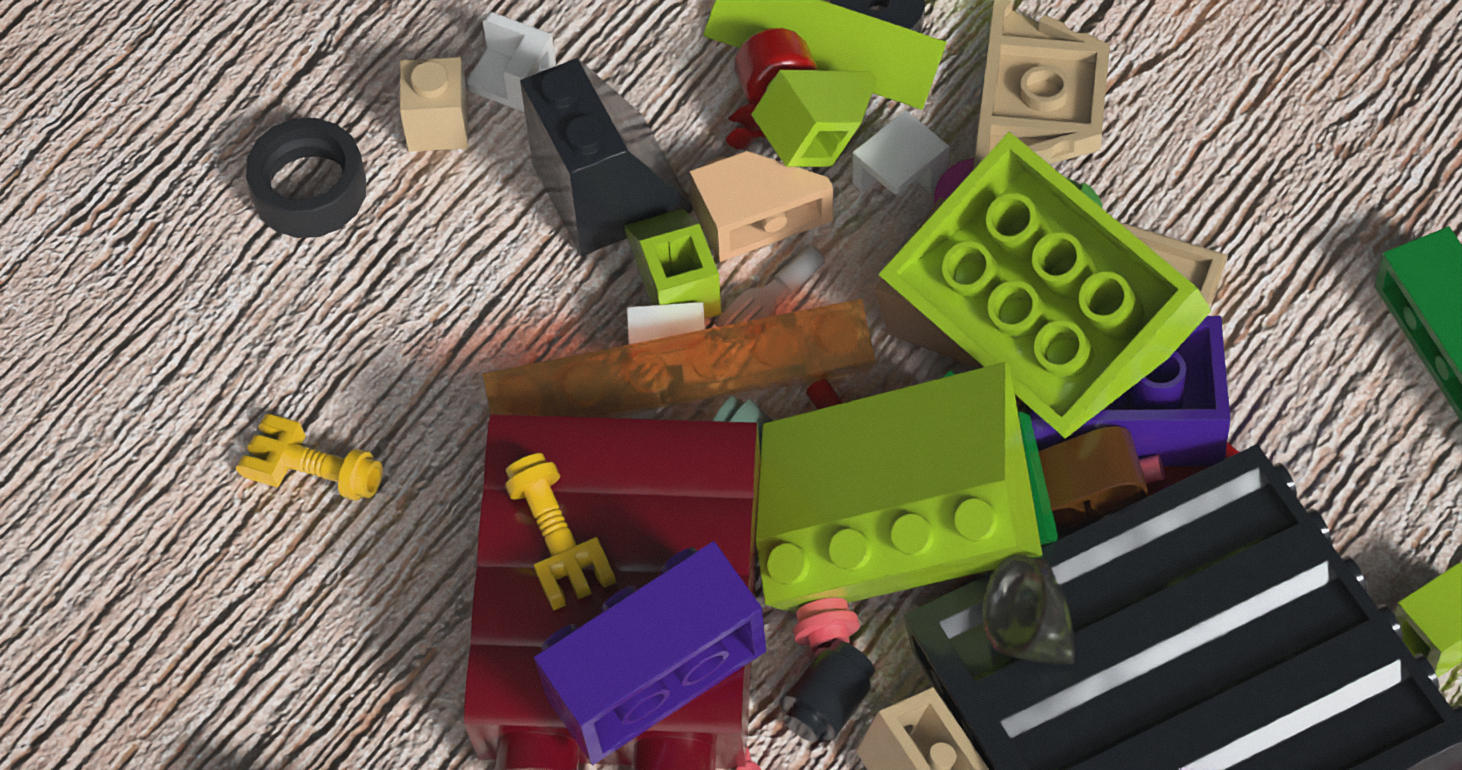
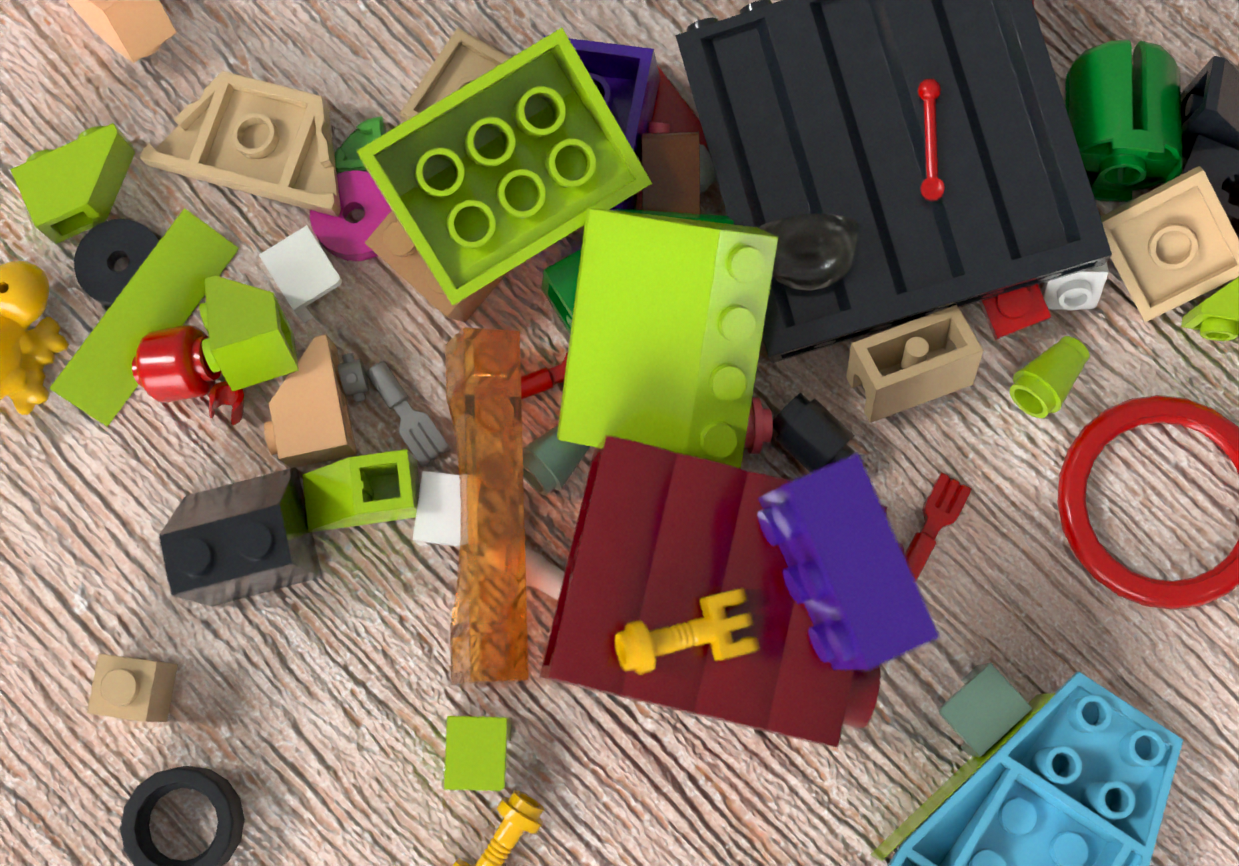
camera: 80 degrees left, 20 degrees up
(417, 411) = (476, 753): none -> lime panel
(511, 55) = (100, 608): white panel -> none
(799, 233) = (353, 377): none -> light grey piece
(1132, 724) = (932, 187): none -> red hinge

